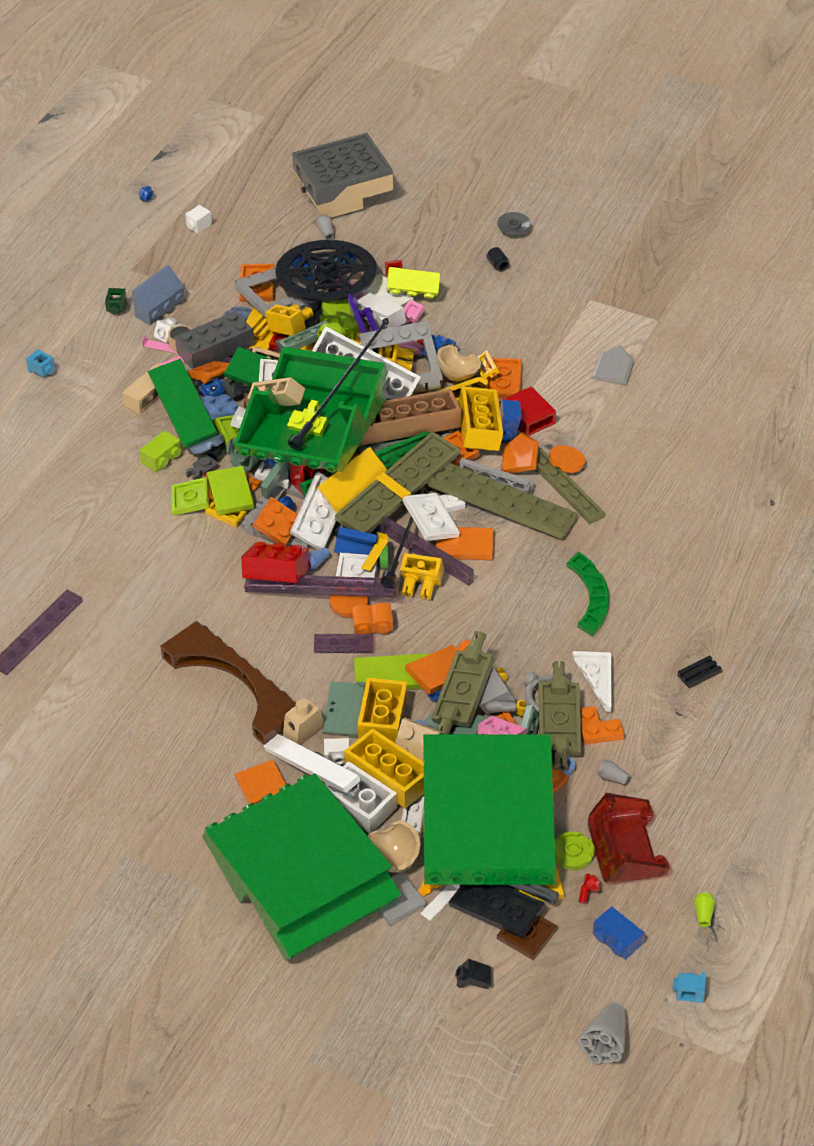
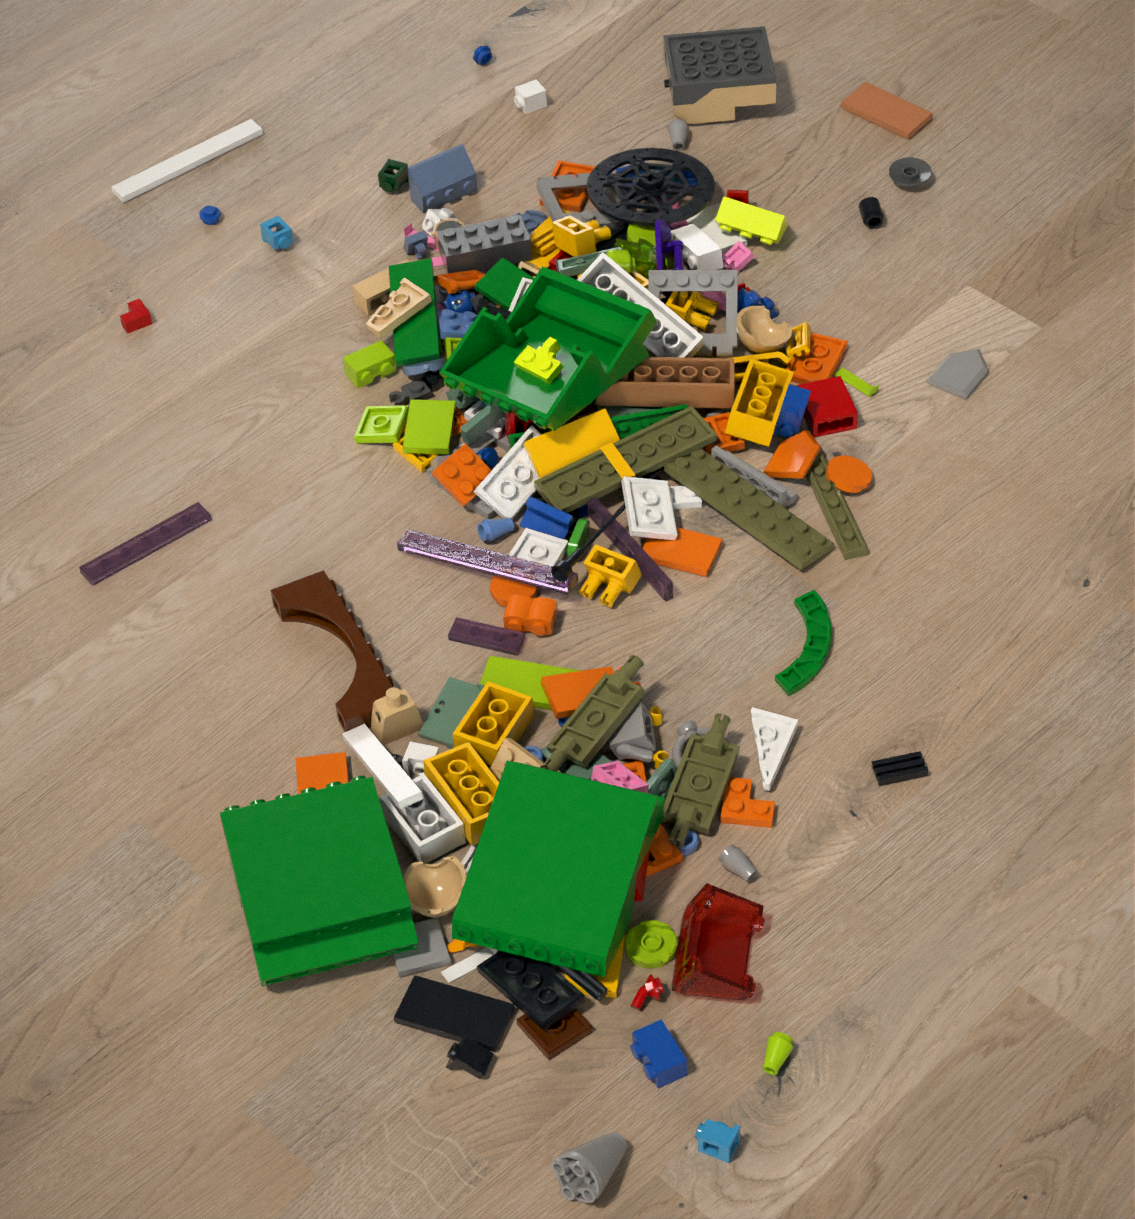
camera: 20 degrees right, 0 degrees up
(157, 350) = (416, 244): none -> sand blue tile
(171, 401) = (398, 309): none -> tan wing
(275, 562) = (441, 522): red brick -> none
(285, 390) = (521, 318): tan slope -> none
(296, 442) = (514, 383): black piece -> none
(375, 552) = (565, 536): yellow piece -> none
(445, 942) = (454, 1013): none -> black tile
(474, 180) = (886, 110): none -> nougat tile
(541, 389) = (856, 382): none -> lime piece

